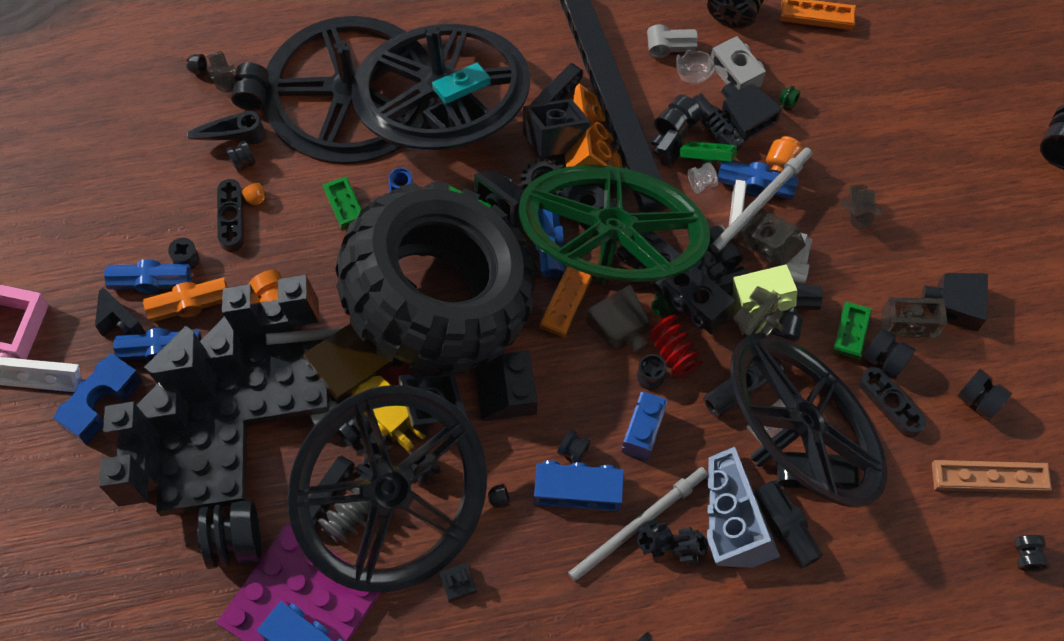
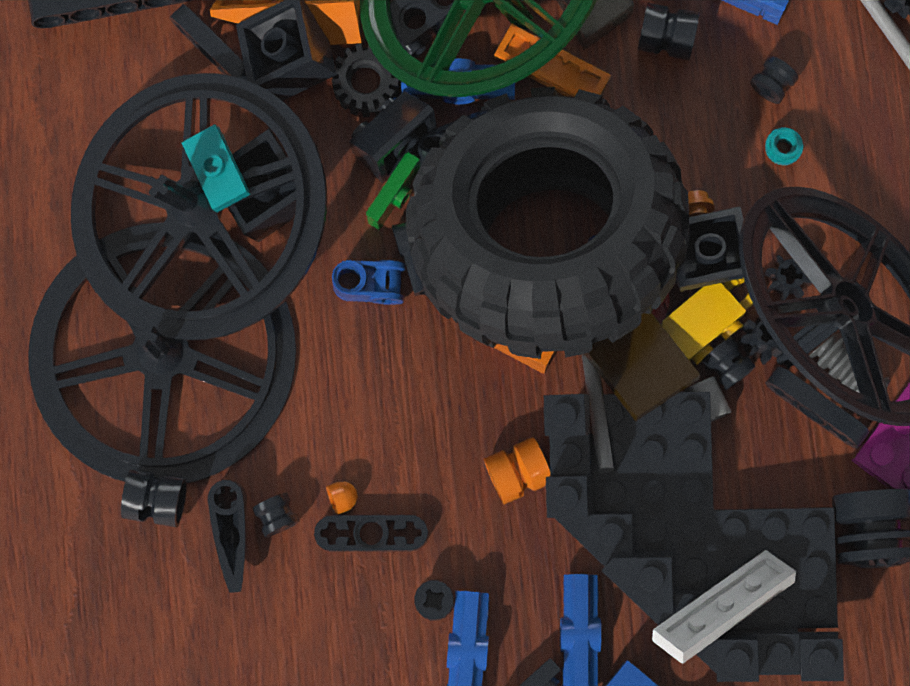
camera: 80 degrees left, 15 degrees up
(162, 412) = (723, 606): none -> white plate
(184, 300) = (511, 594): orange piece -> none
(197, 64) = (96, 582): black hinge -> none
(221, 72) = (119, 542): clear smoke hips -> none
(342, 201) = (370, 365): green plate -> none
(471, 398) = (699, 203): none -> orange plate
(499, 496) = (833, 182): black hinge -> none
(506, 387) = (696, 148): black slope -> none
(521, 452) = (788, 136): none -> teal plate
(578, 486) = (828, 80): blue brick -> none
(601, 370) = (668, 31): none -> black wheel

